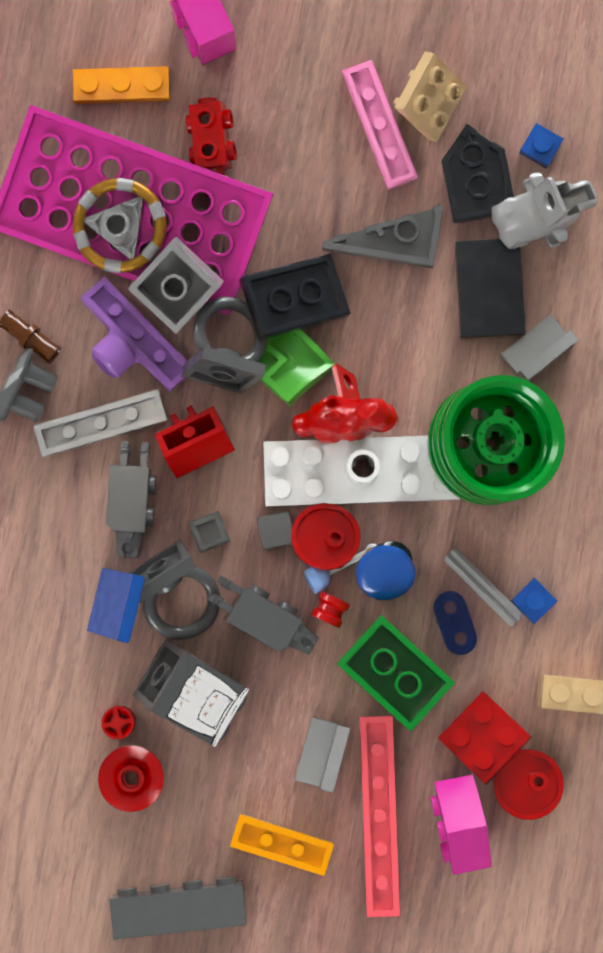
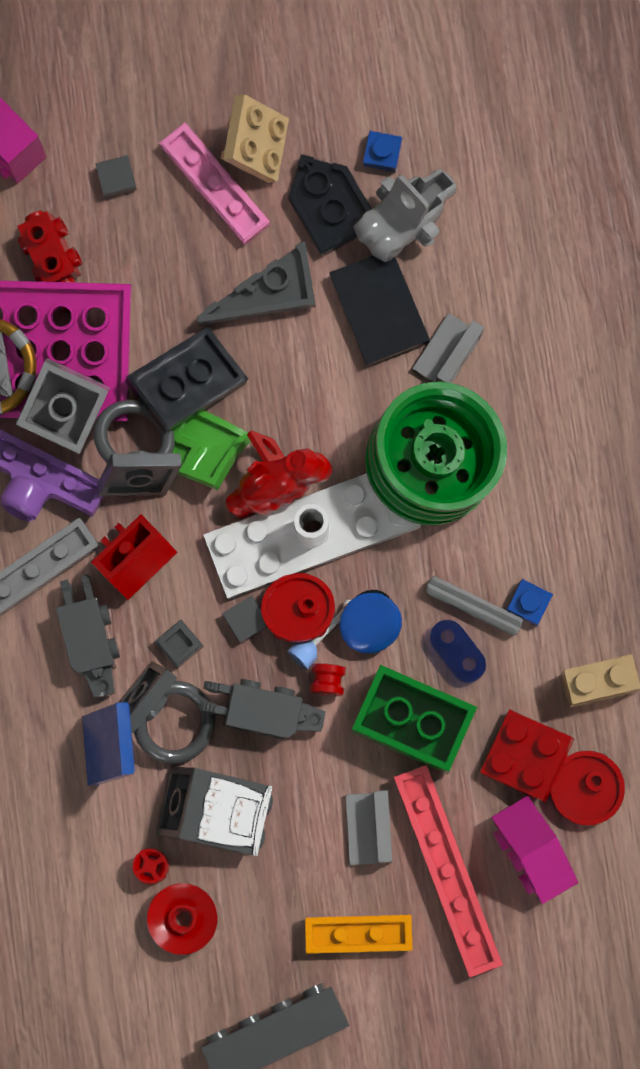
camera: 15 degrees left, 5 degrees down
(293, 88) = (116, 176): none -> dark grey tile

